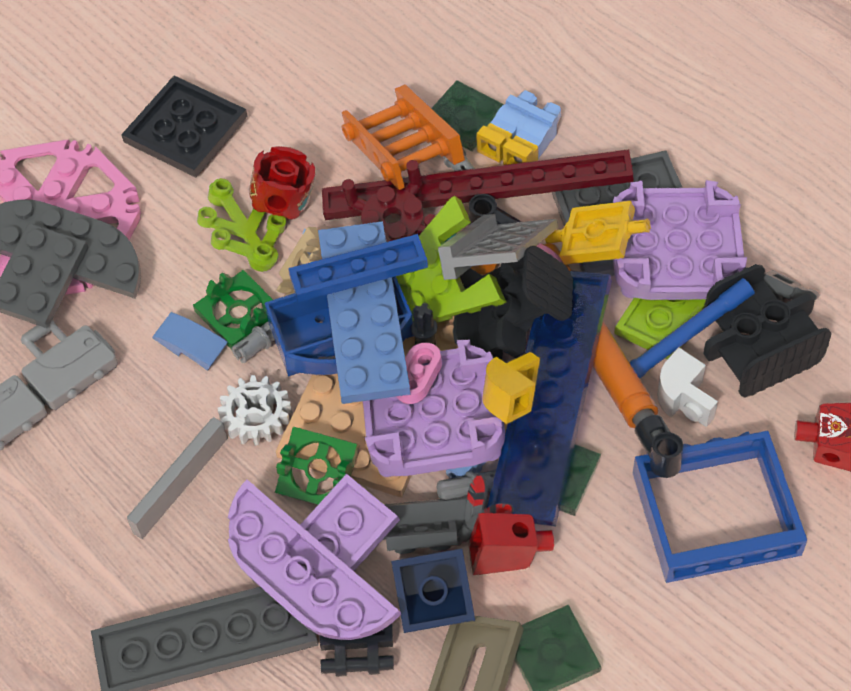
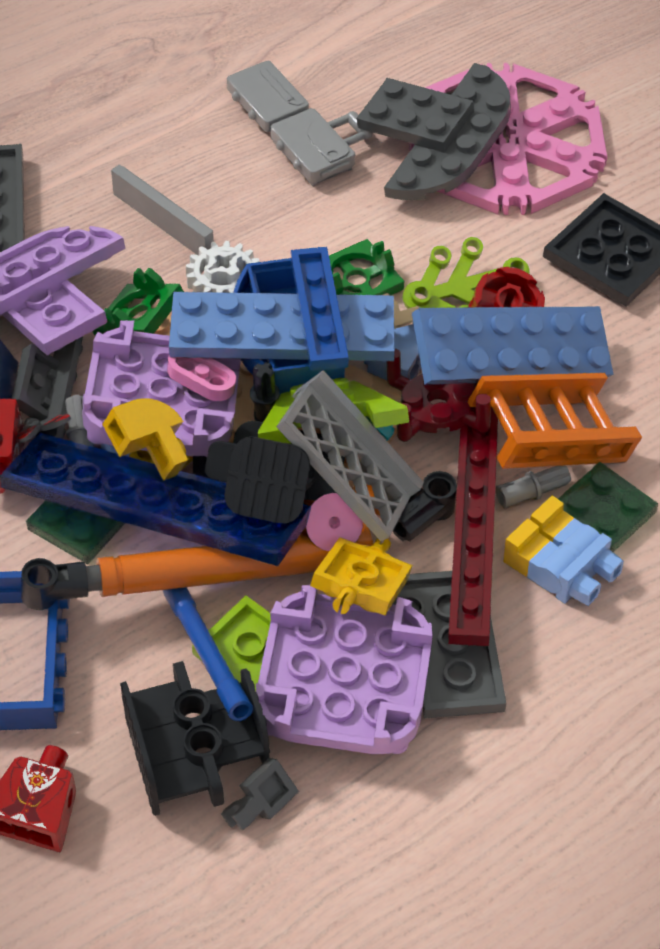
camera: 95 degrees right, 5 degrees down
(191, 339) = (326, 229): medium blue slope -> none
(339, 160) = (496, 341): none -> medium blue plate
(679, 388) = (145, 641): white brick -> none

